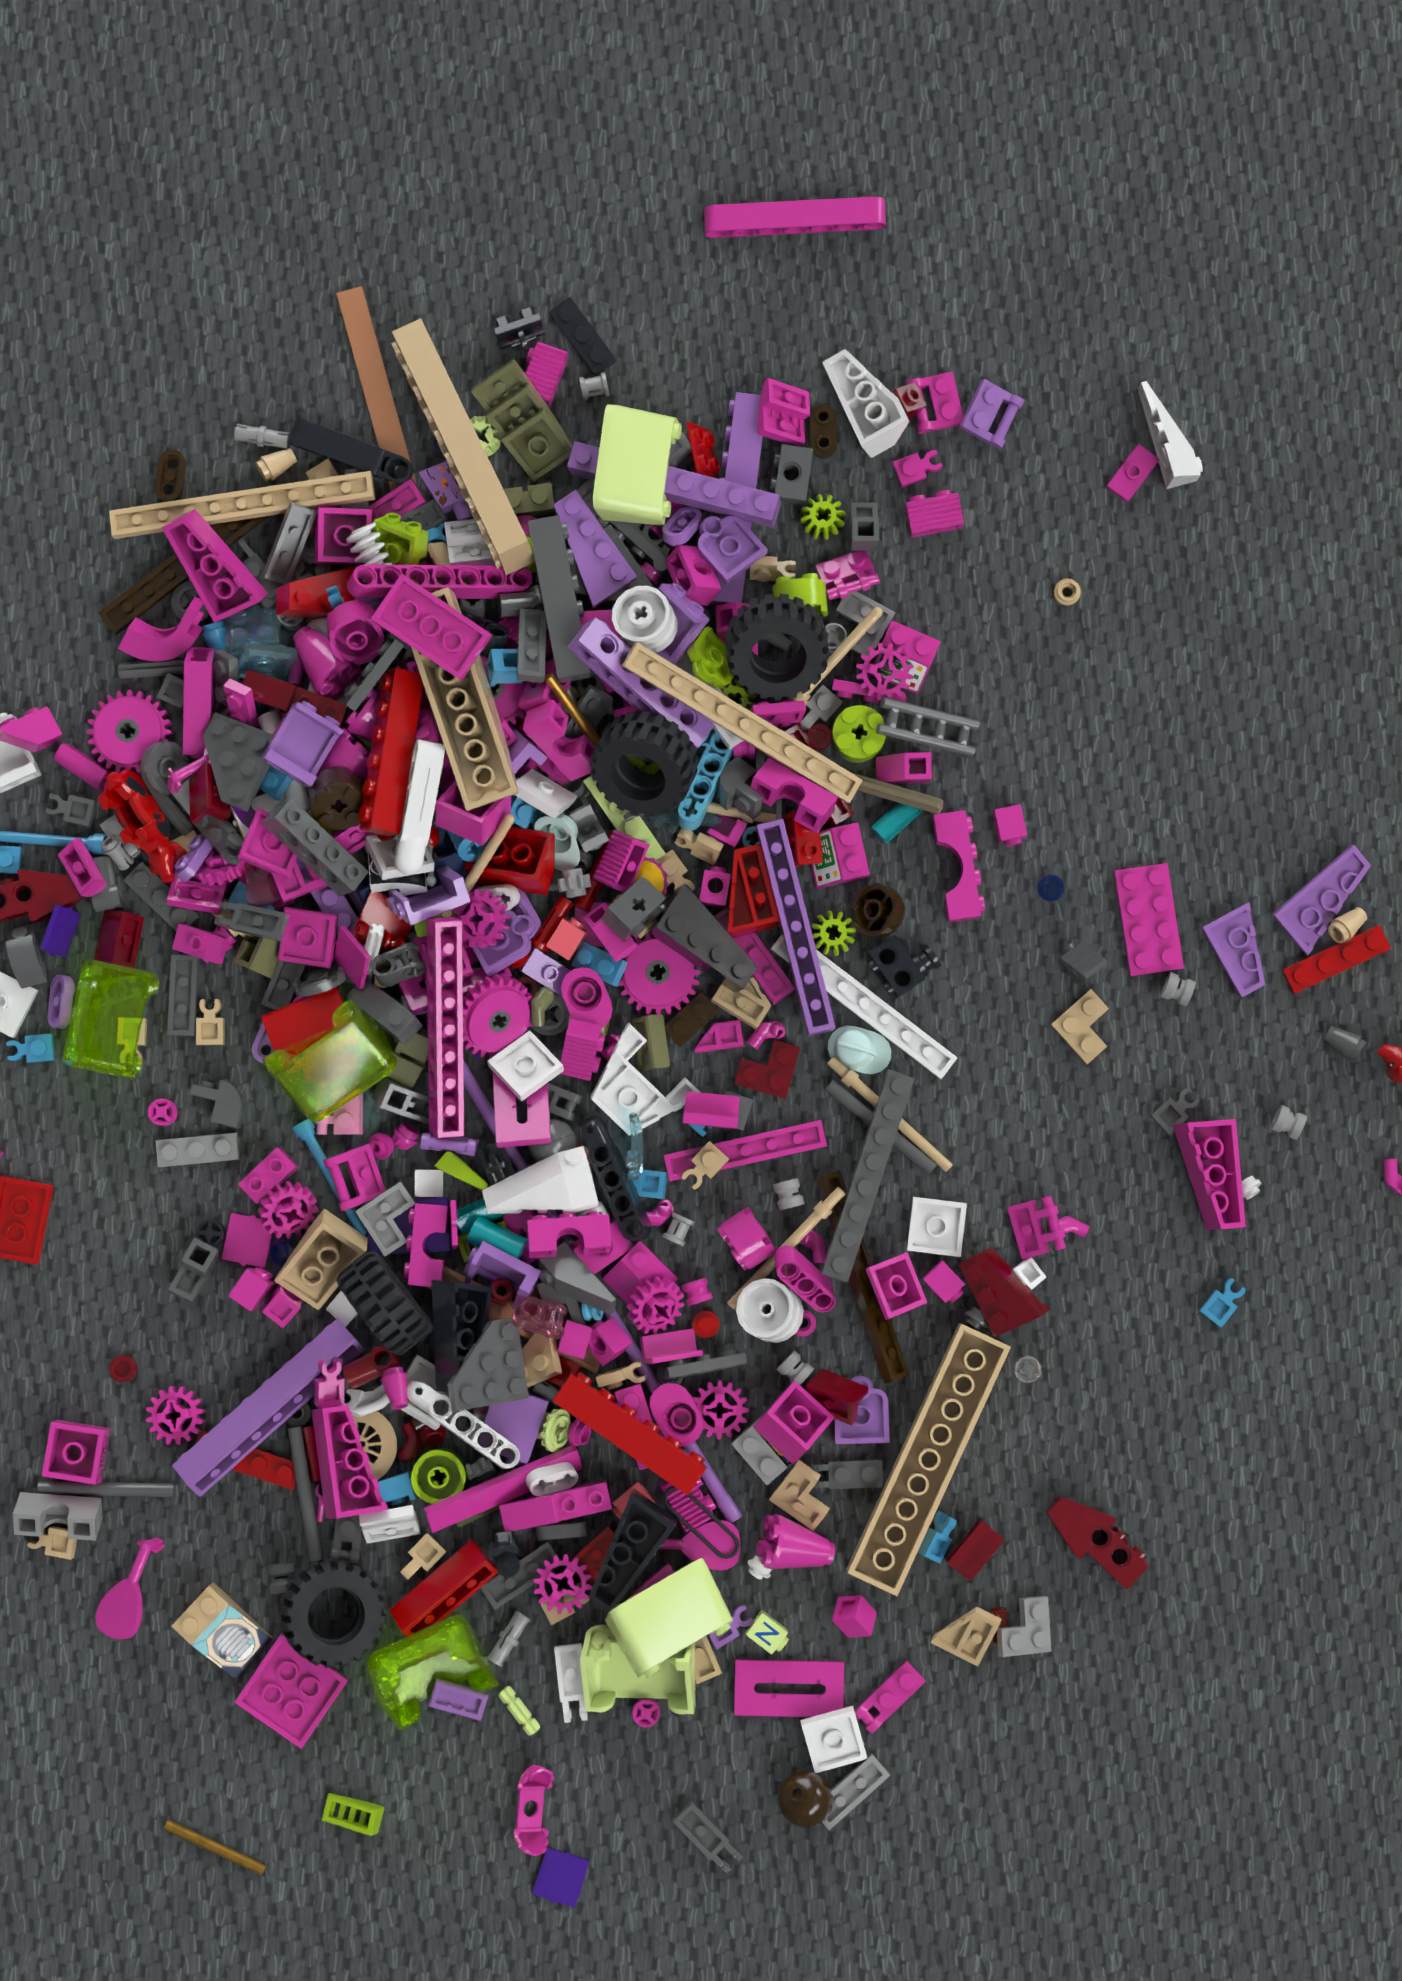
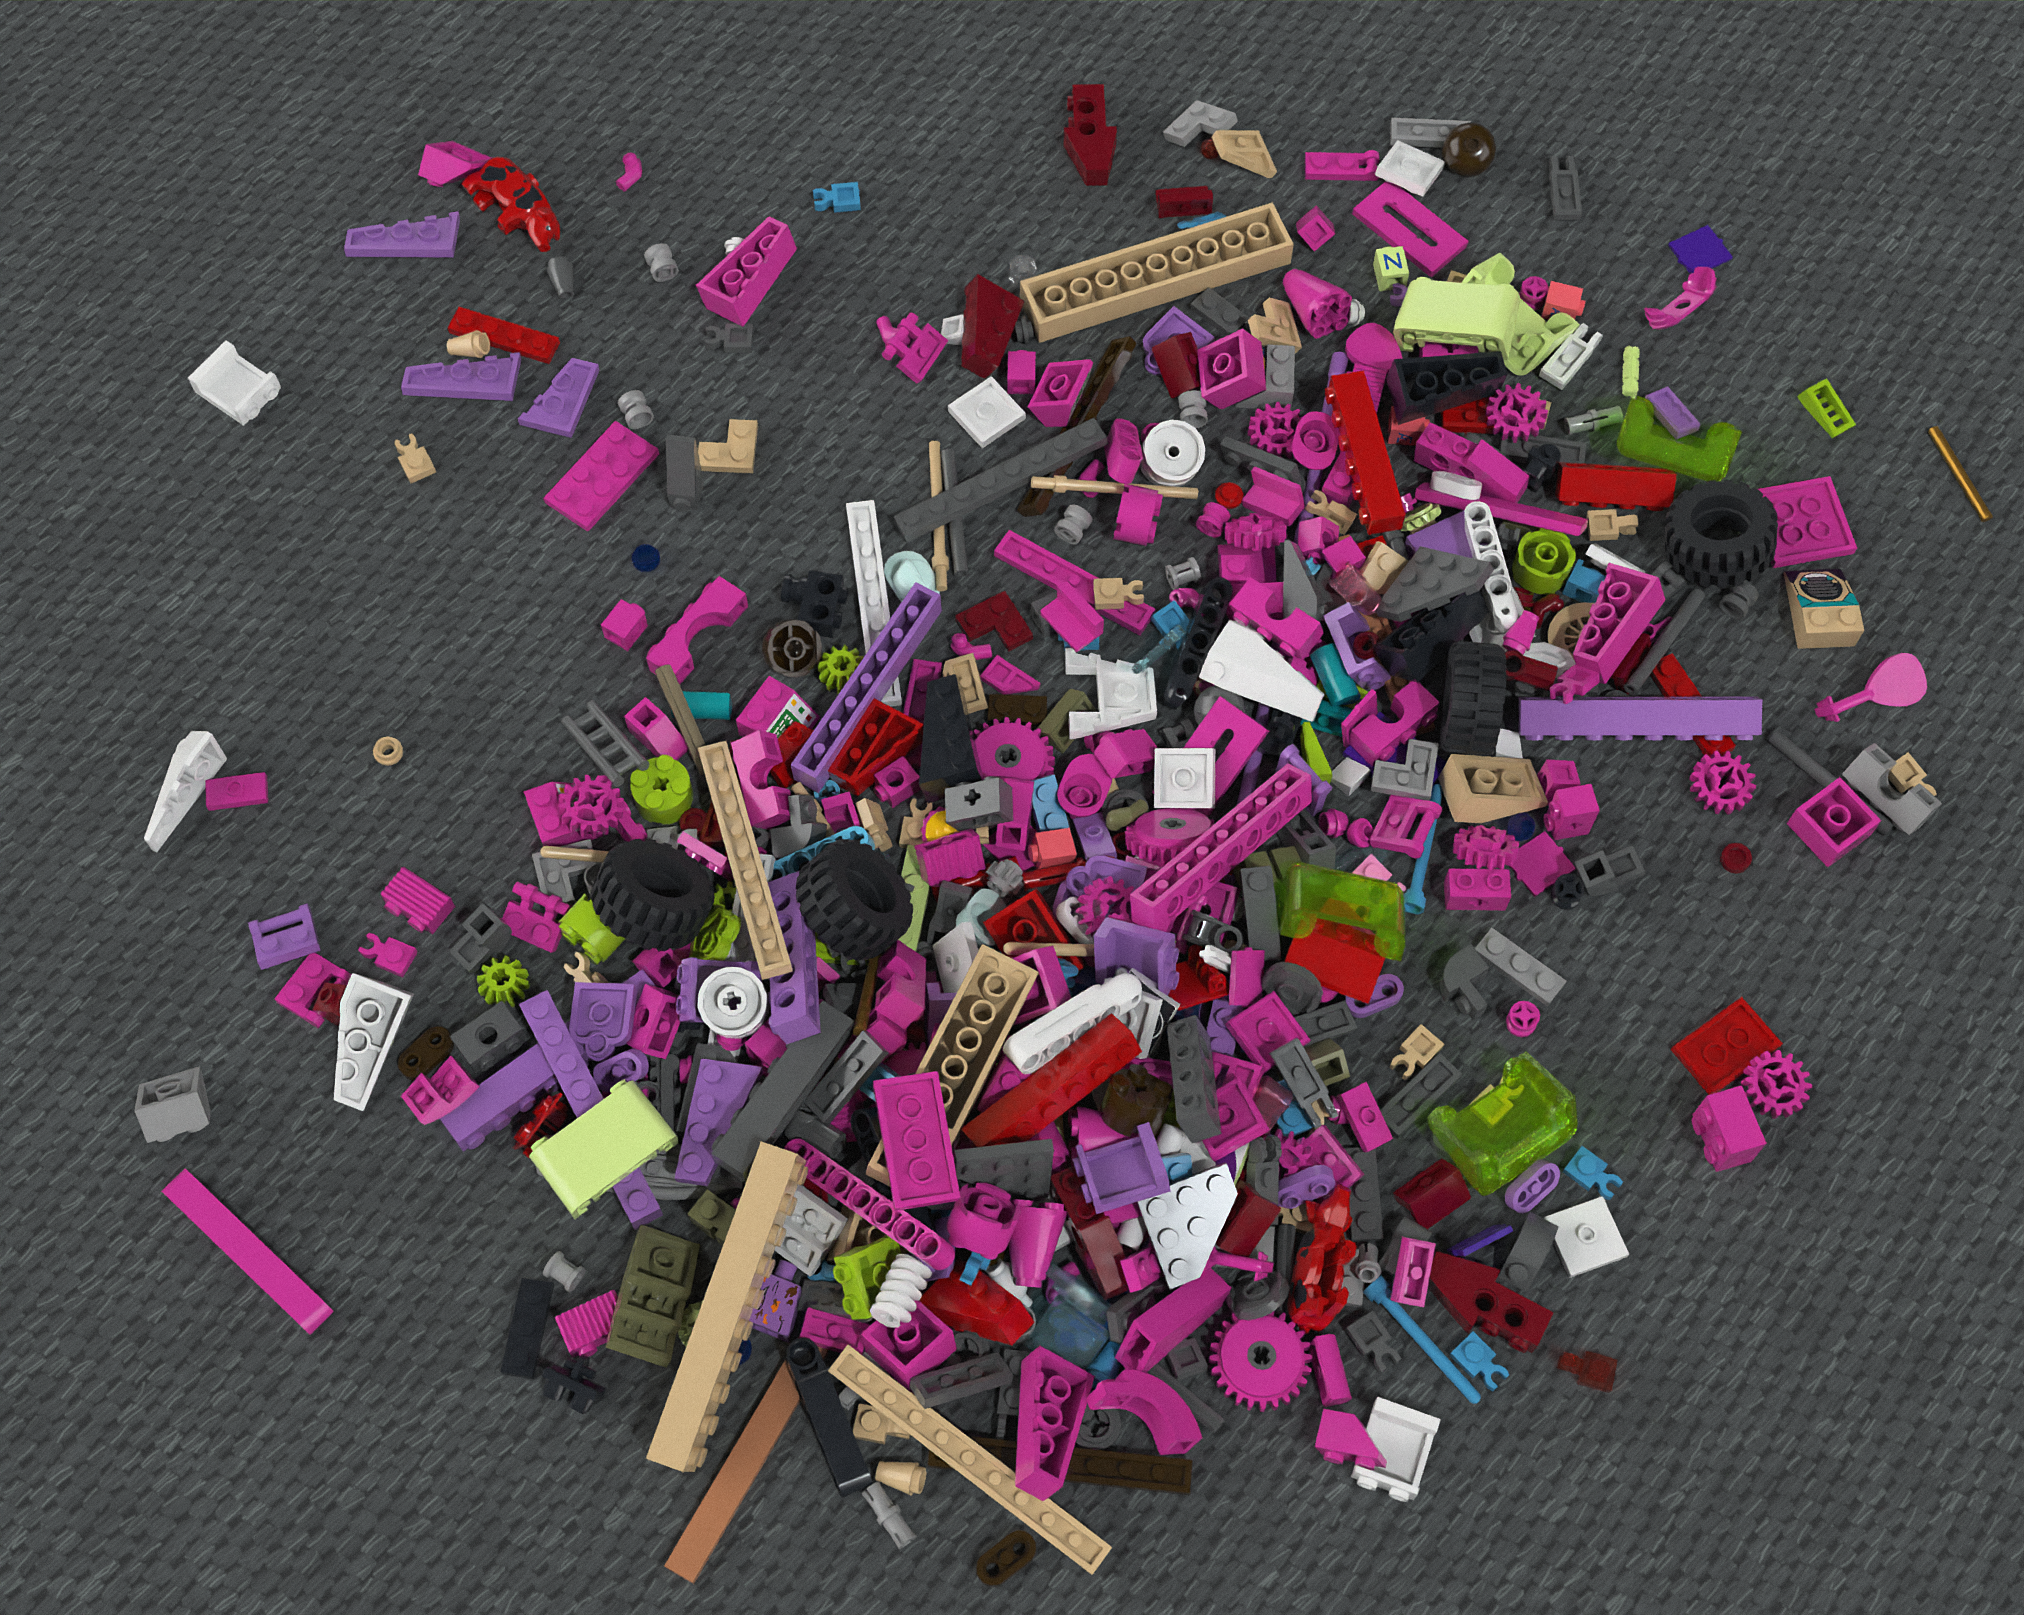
camera: 135 degrees left, 20 degrees down
(615, 1722) = (1563, 299): none -> coral brick
(696, 1532) = (1378, 356): black piece -> none
(938, 252) = (173, 1105): none -> light grey slope
(1284, 806) = (414, 461): none -> tan plate

